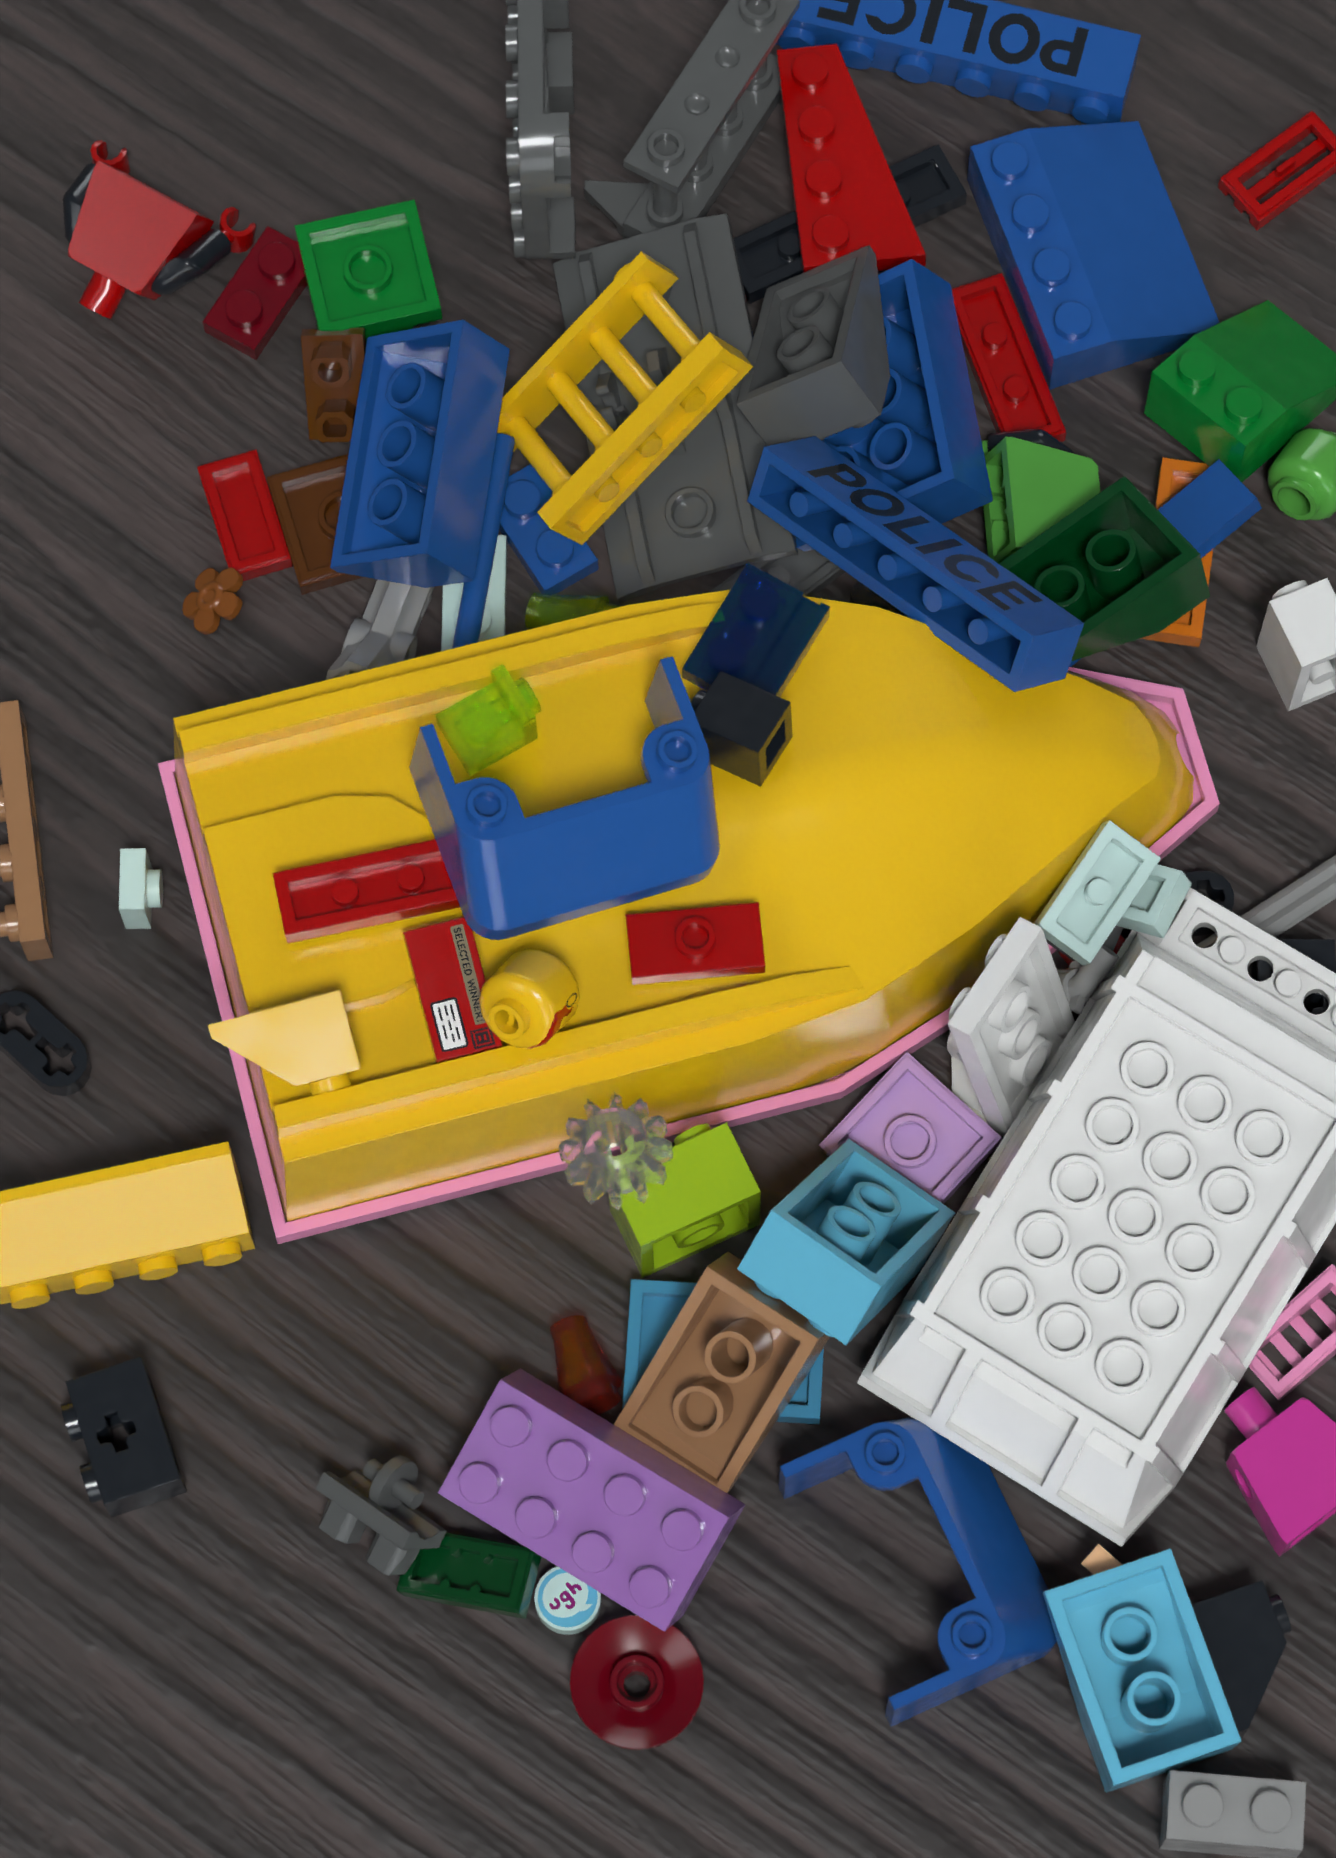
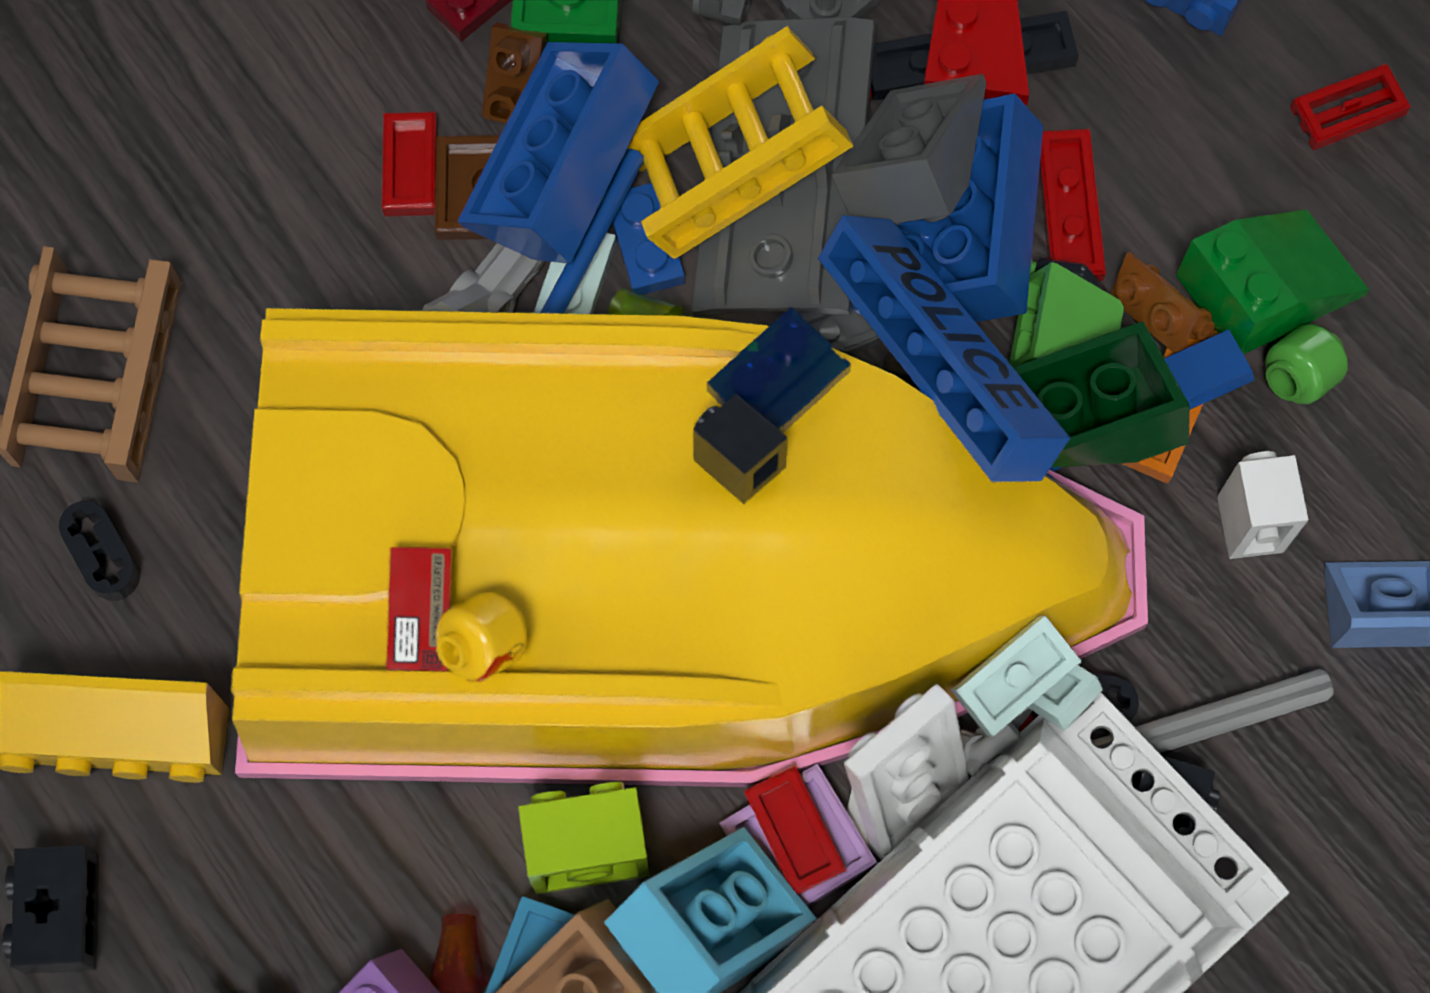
camera: 15 degrees right, 0 degrees up
(138, 888) = (220, 444): light aqua plate -> none
(214, 599) = (361, 224): dark orange plant -> none
(296, 1041) = (267, 618): yellow slope -> none
(363, 891) = (382, 502): red plate -> none
(491, 721) = (528, 384): clear neon green bracket -> none
(583, 856) = (568, 522): blue windscreen -> none
(619, 1174) = (505, 788): clear gear -> none
(695, 943) = (645, 627): red plate -> none
(904, 1127) = (795, 831): none -> red tile
(1089, 246) = (1168, 126): blue slope -> none
(1135, 451) = (1160, 305): none -> dark orange hinge

